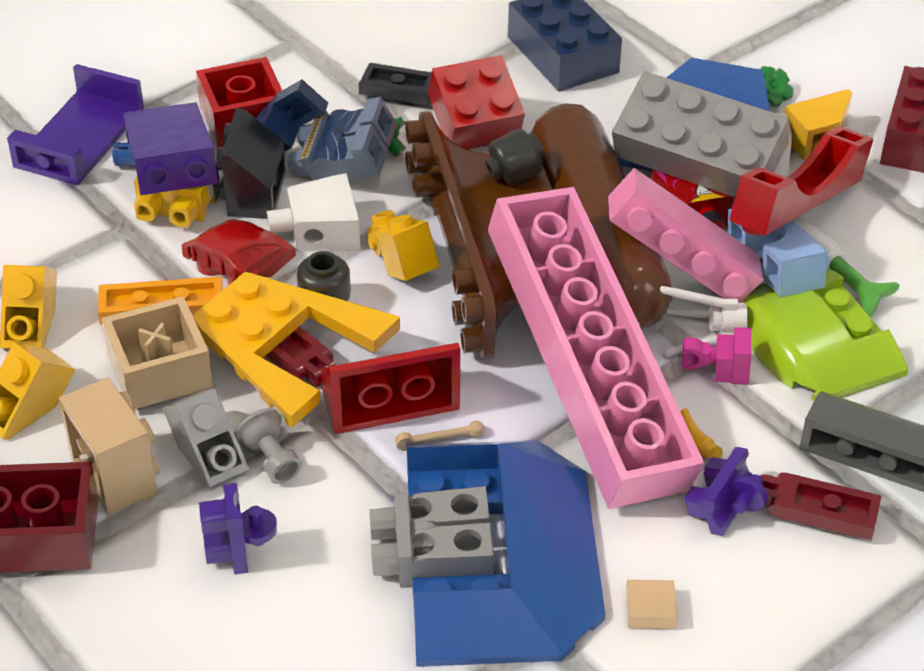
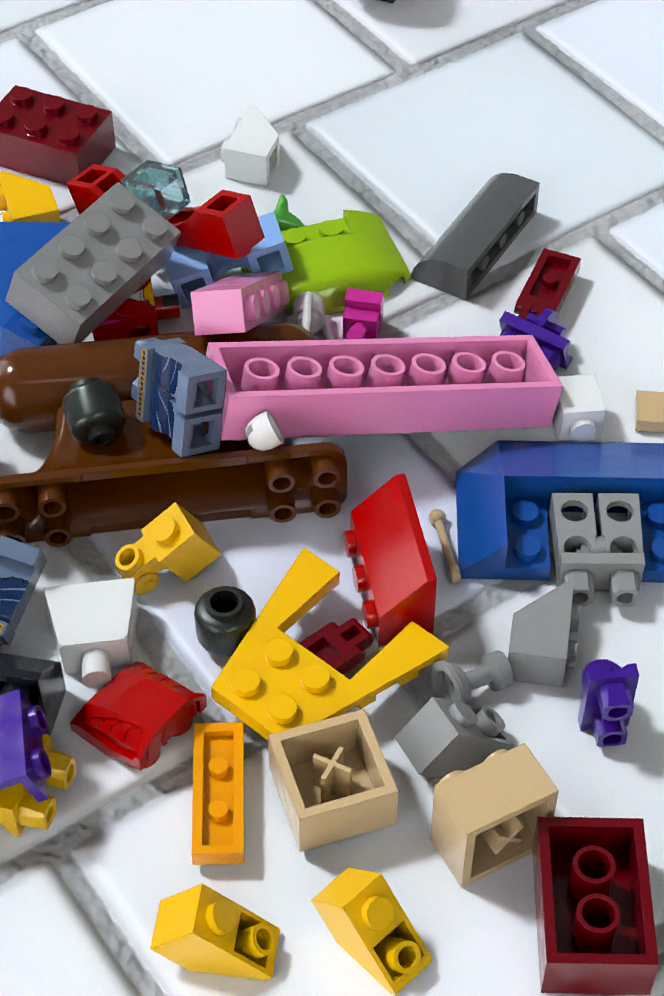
camera: 85 degrees left, 5 degrees up
(320, 496) = (541, 640): none -> light grey slope
(496, 244) = (263, 432): none -> white hinge
(537, 171) = (175, 394): none -> sand blue hips
(631, 525) = (579, 409): none -> white brick
(818, 163) = (159, 187): none -> clear light blue brick

